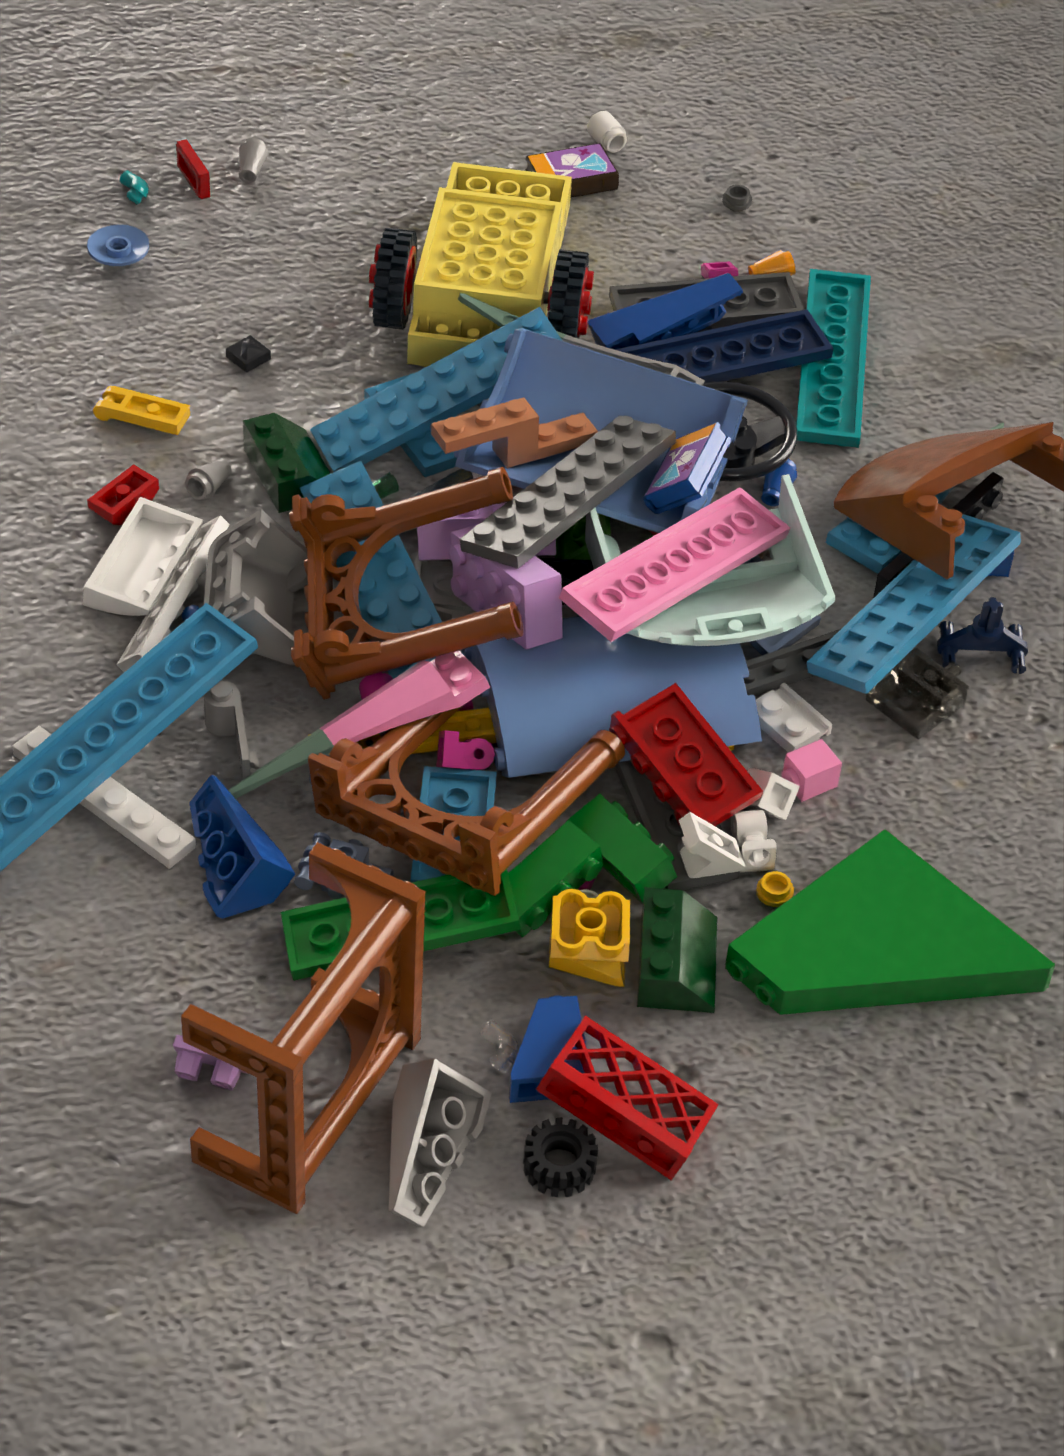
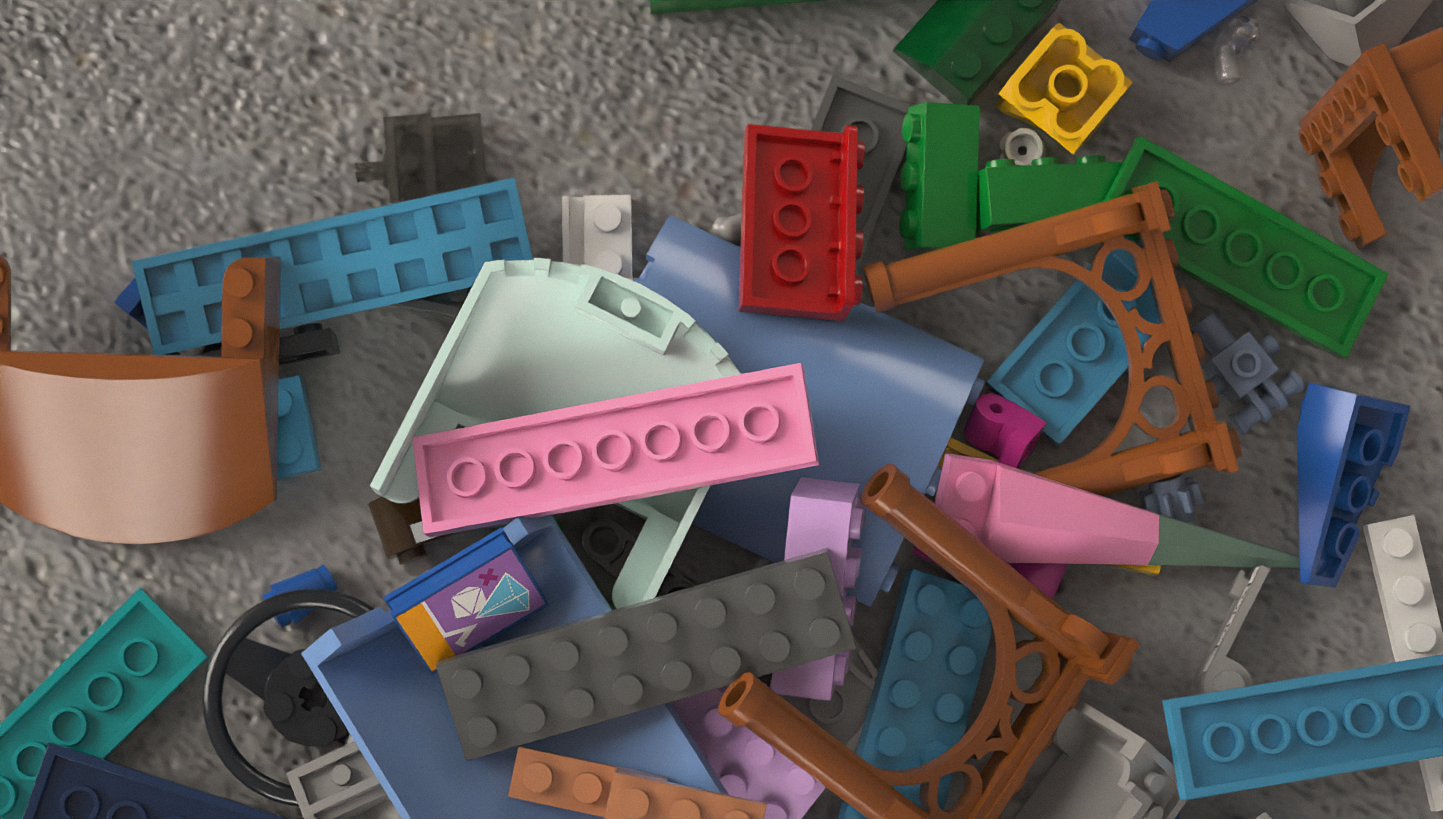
camera: 140 degrees left, 35 degrees up
(708, 849) = (858, 100): white slope -> none
(751, 834) = (797, 86): white leg -> none
(774, 889) = (809, 35): yellow plate -> none
(777, 793) = (713, 154): white panel -> none
(813, 769) = (645, 148): bright pink brick -> none
(984, 634) = (290, 173): dark blue axle -> none

